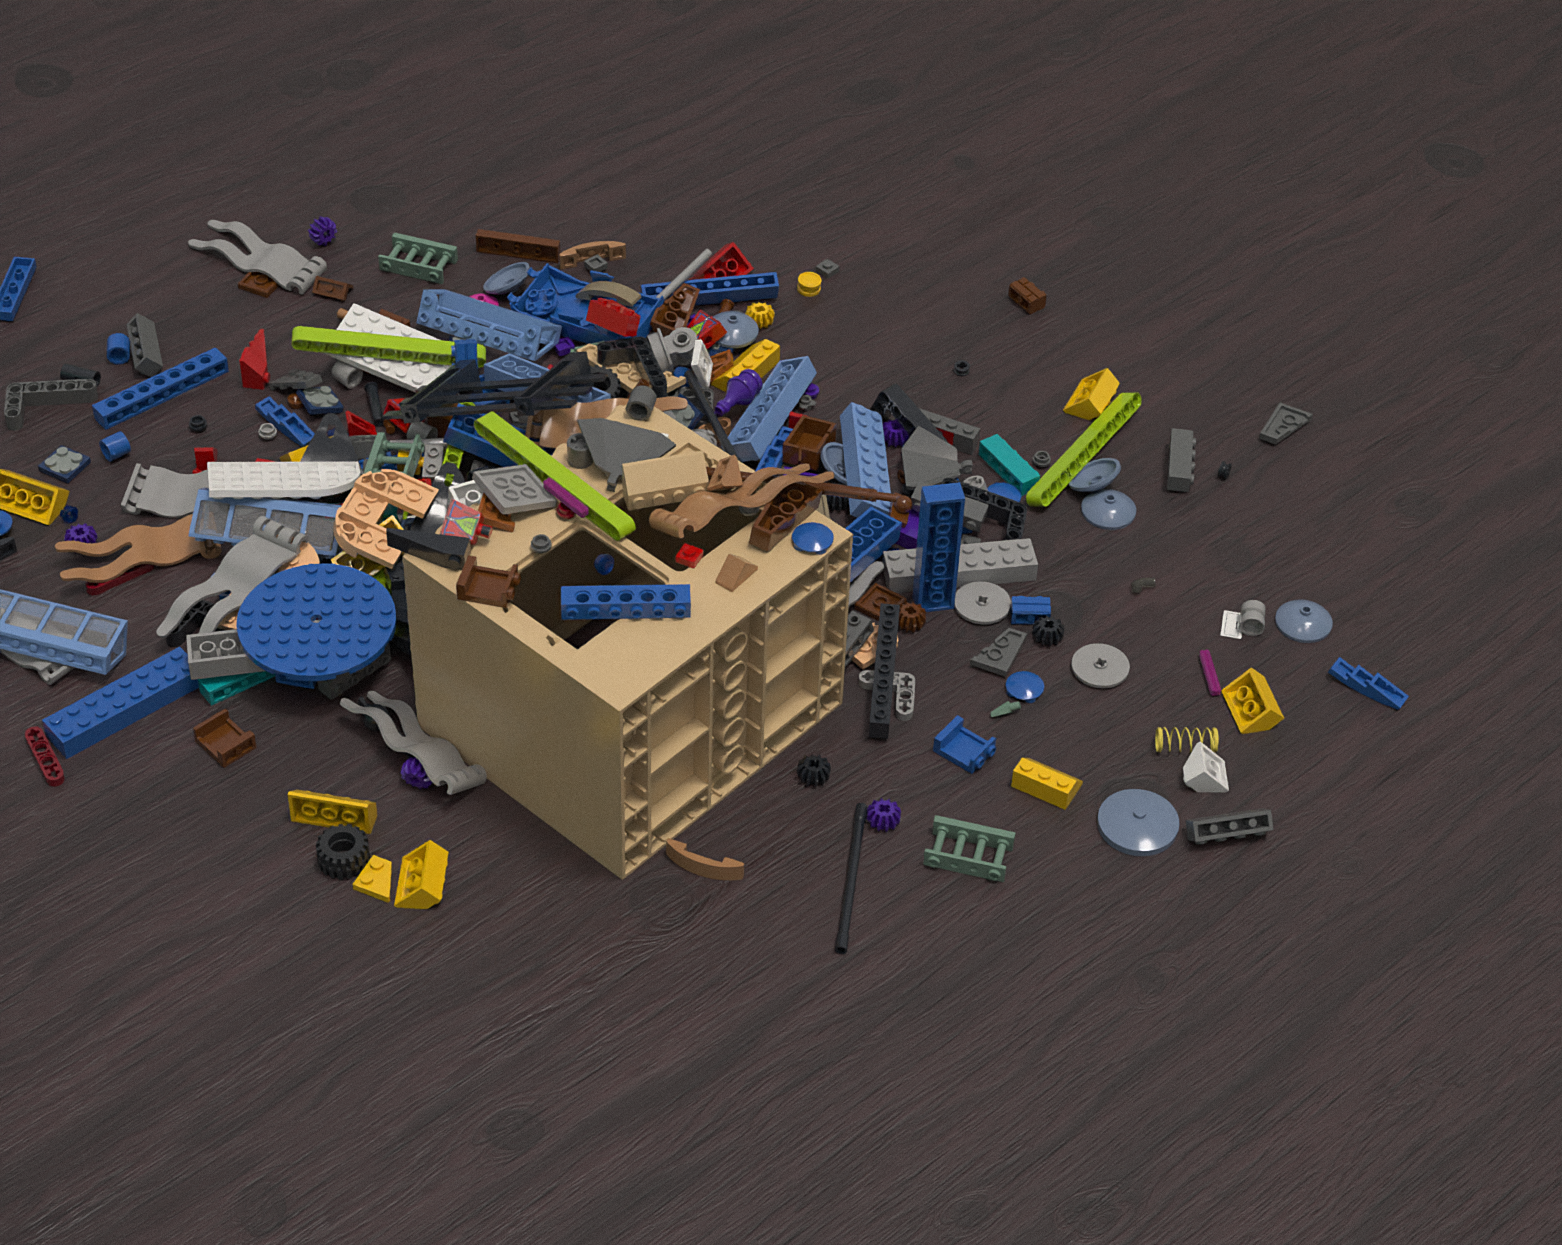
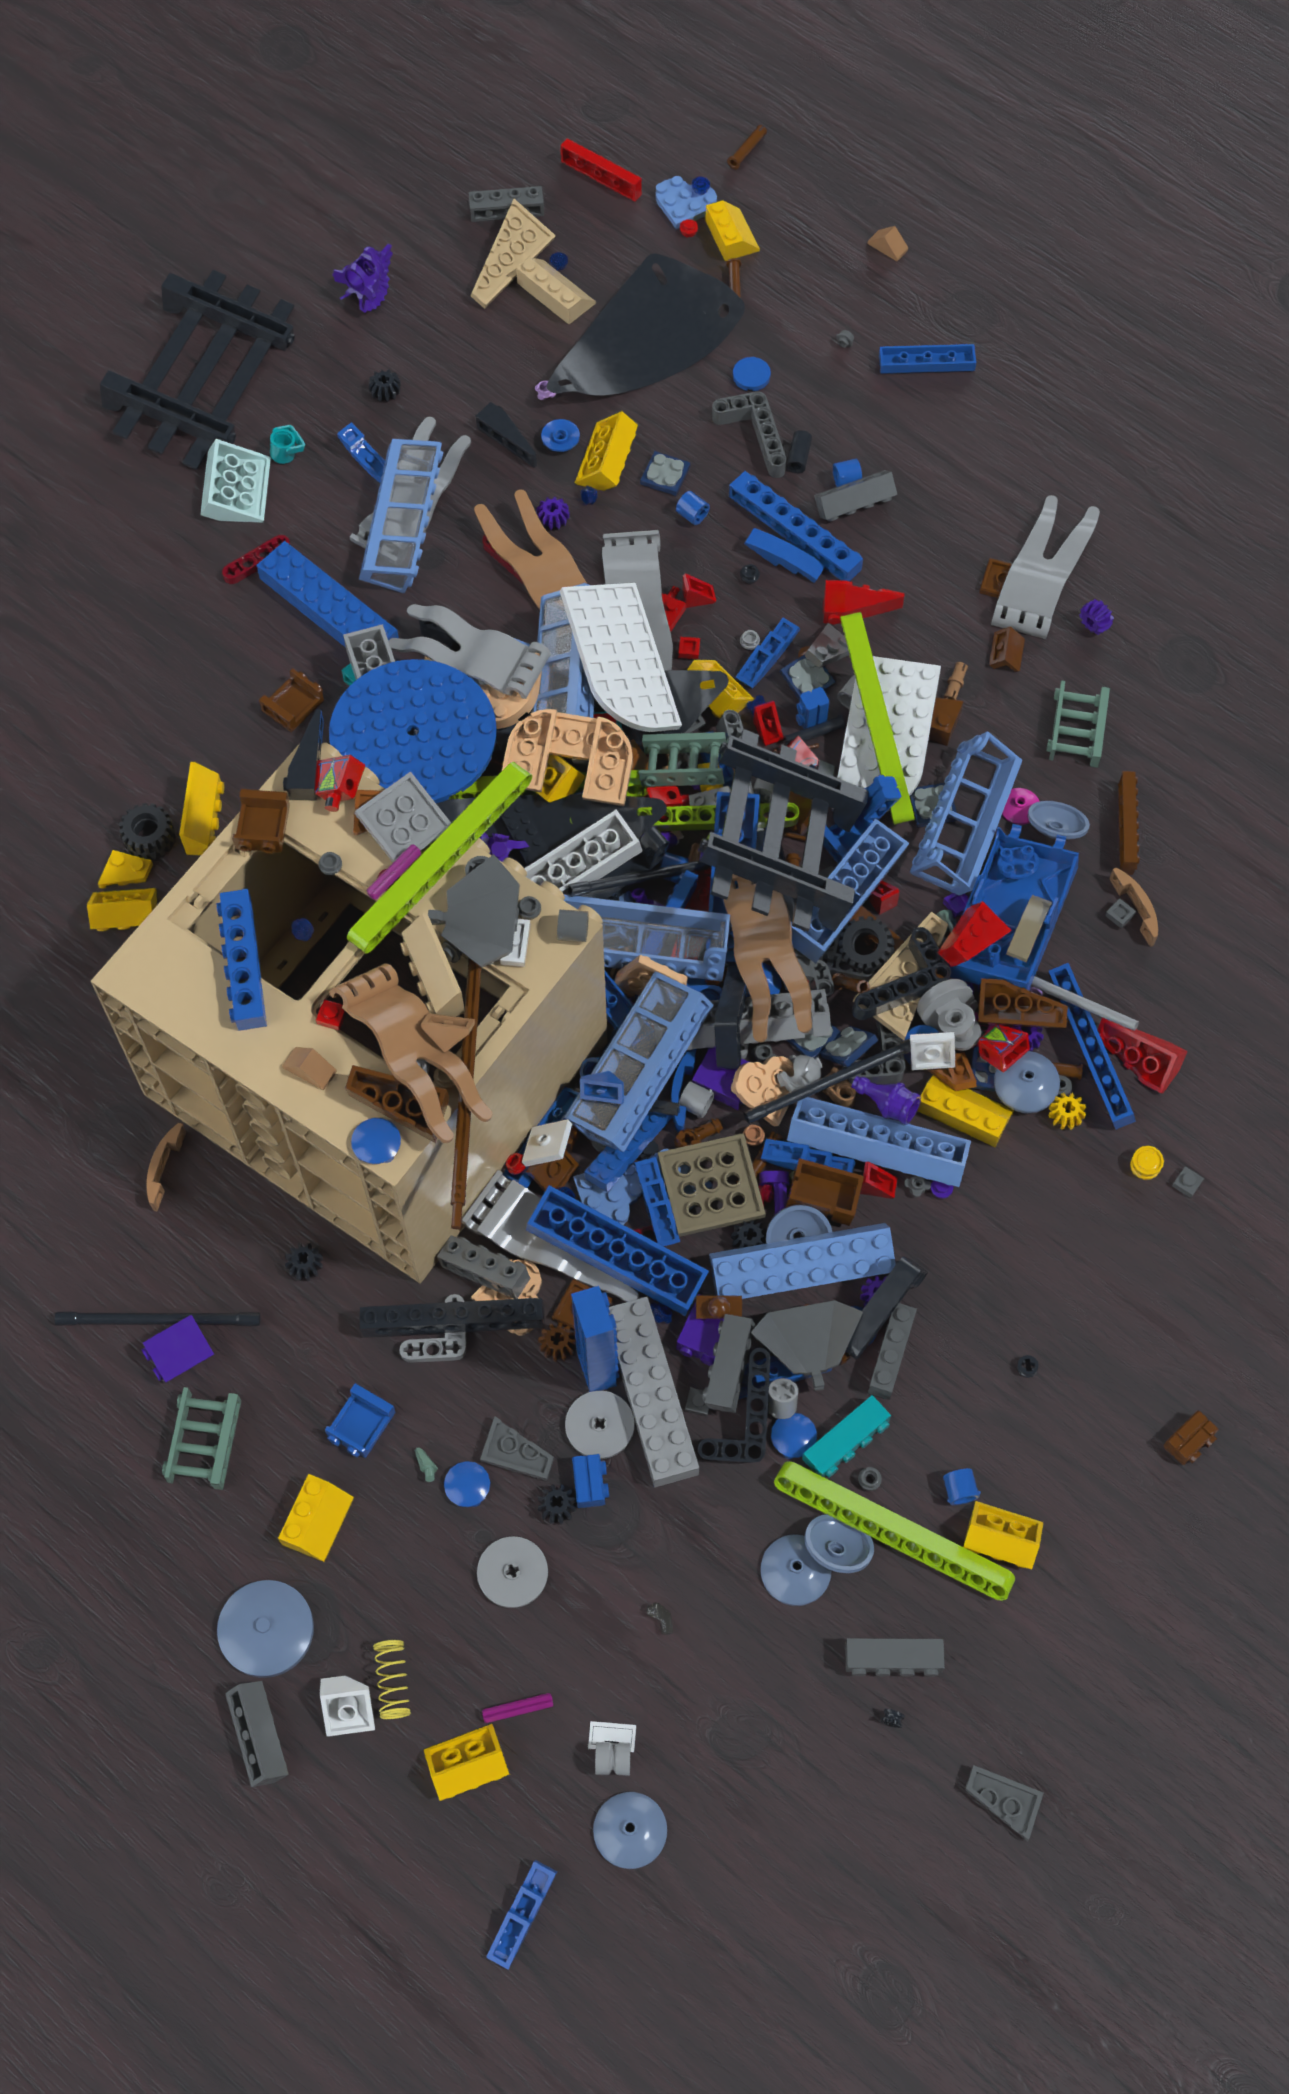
camera: 85 degrees right, 20 degrees up
(185, 398) = (783, 553): none -> blue slope
(358, 394) = (812, 708): none -> blue brick
(883, 814) = (240, 1349): dark purple gear -> none
(886, 856) = (177, 1349): none -> dark purple brick
(1054, 410) = (961, 1486): none -> blue piece

